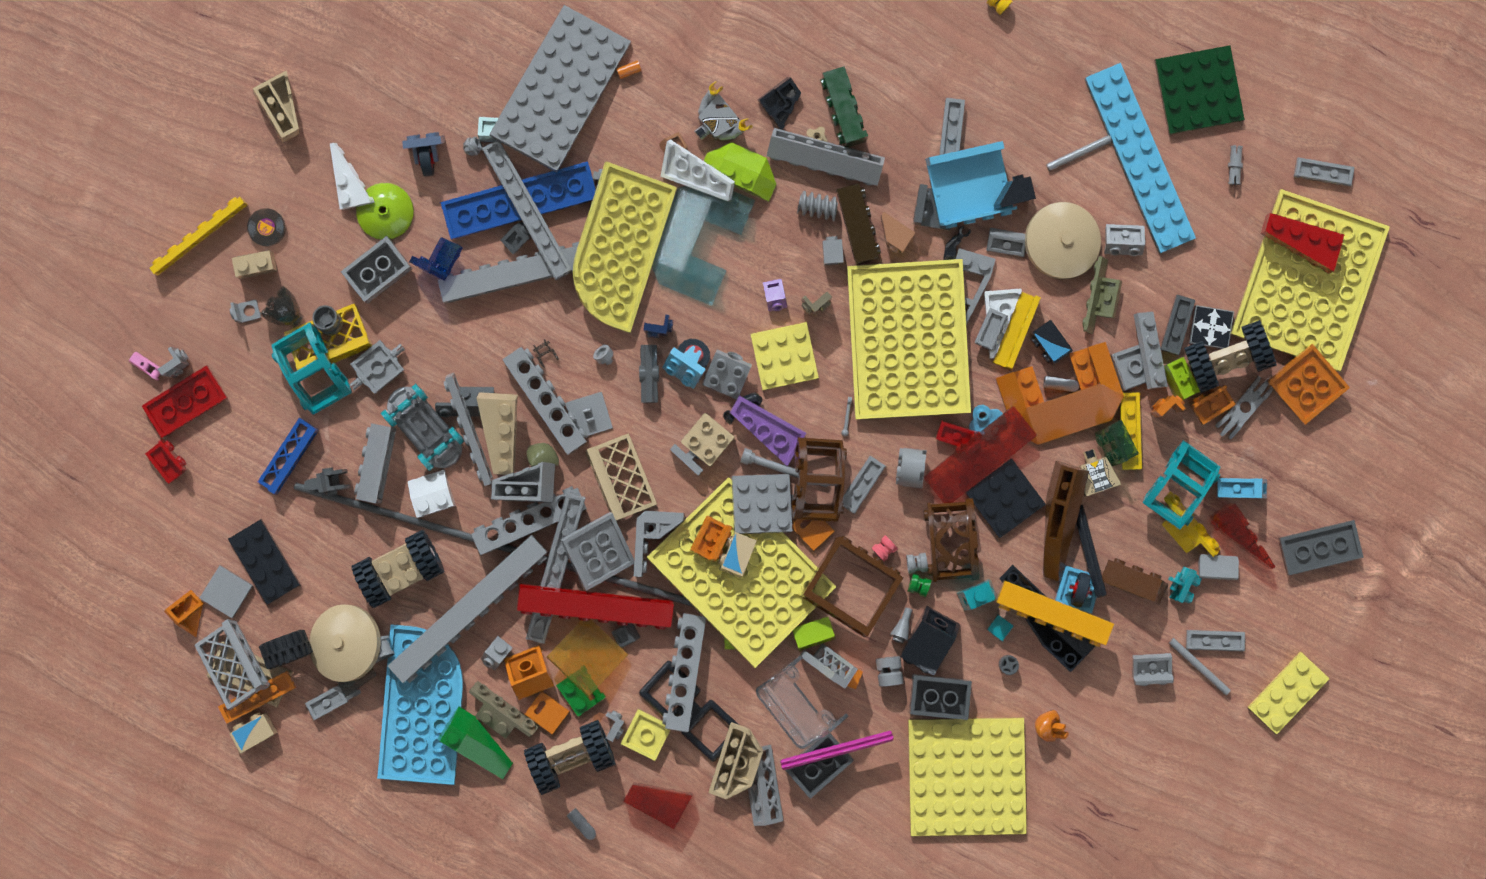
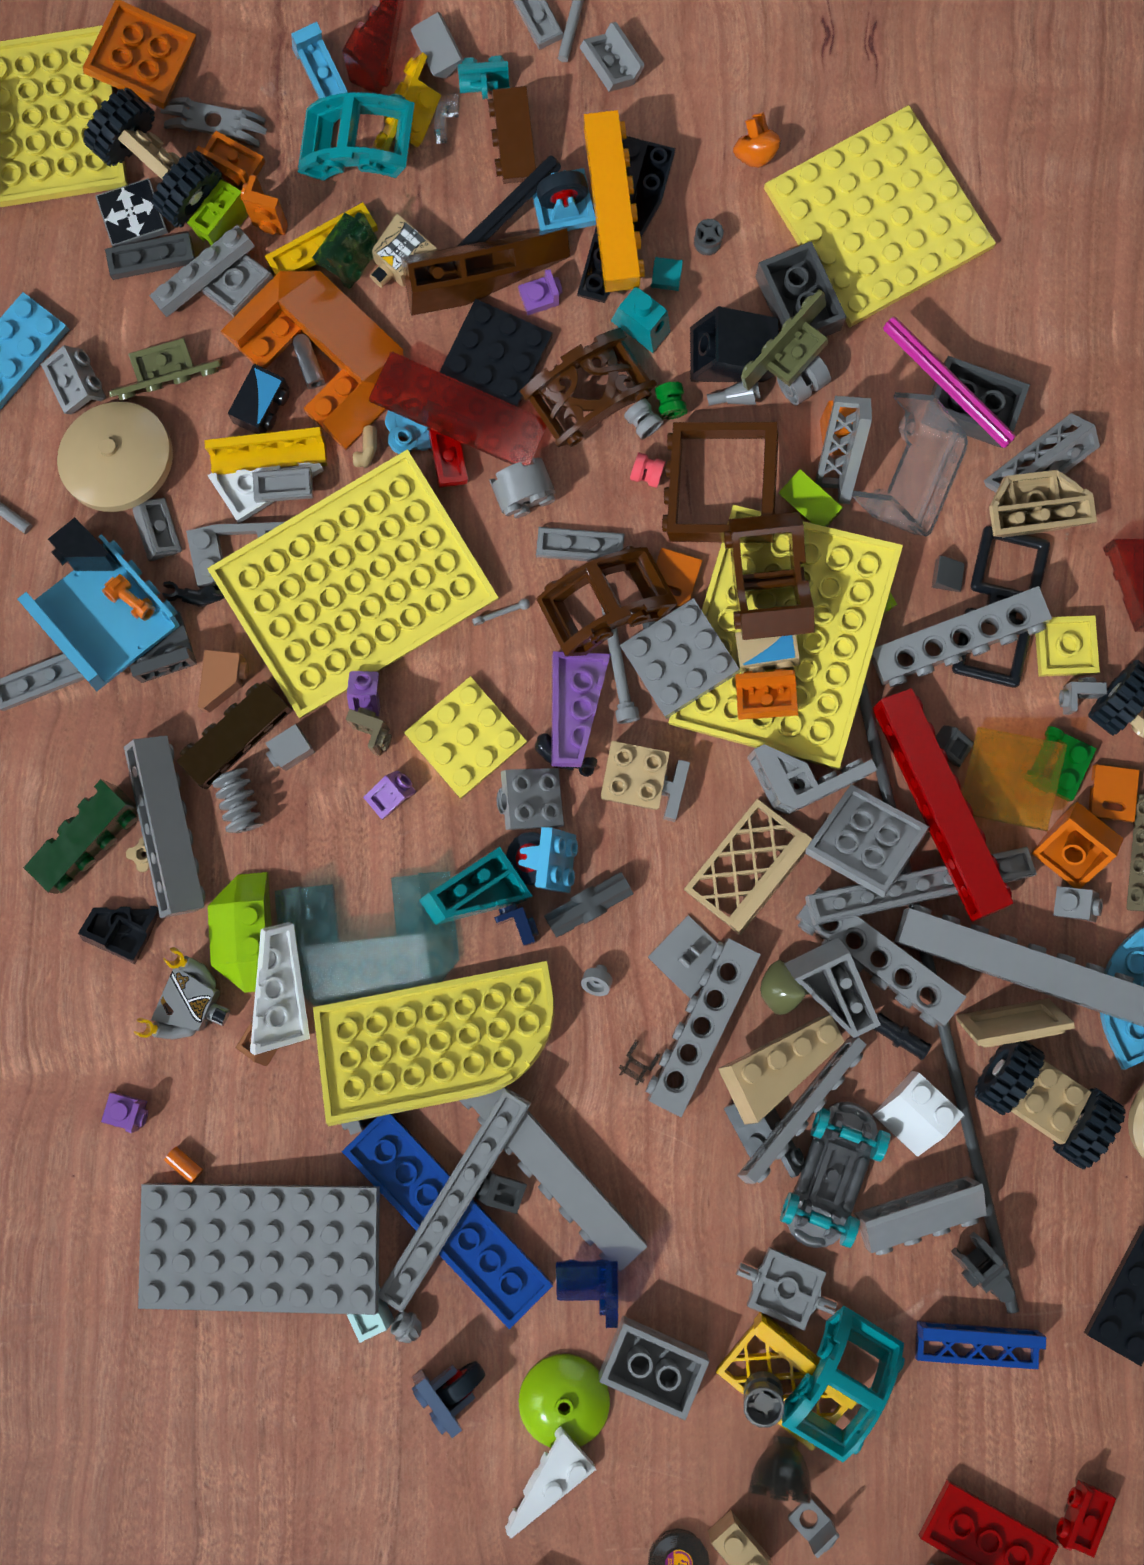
camera: 125 degrees left, 5 degrees down
(451, 575) = (1015, 1023): none -> tan piece
(478, 509) = (902, 1037): none -> black pin
(676, 52) = (125, 1112): none -> medium lavender bracket
(692, 314) = (476, 890): none -> teal wedge
(726, 690) = (948, 574): none -> dark grey slope
(749, 565) = (776, 620): none -> reddish brown window
(841, 311) = (363, 691): none -> medium lavender bracket
(906, 669) = (792, 348): none -> olive bracket
(980, 201) = (119, 588): none -> orange bar
(987, 392) = (369, 448): none -> tan arm
(1028, 545) = (540, 293): none -> medium lavender bracket
(1176, 554) = (446, 107): none -> clear slope

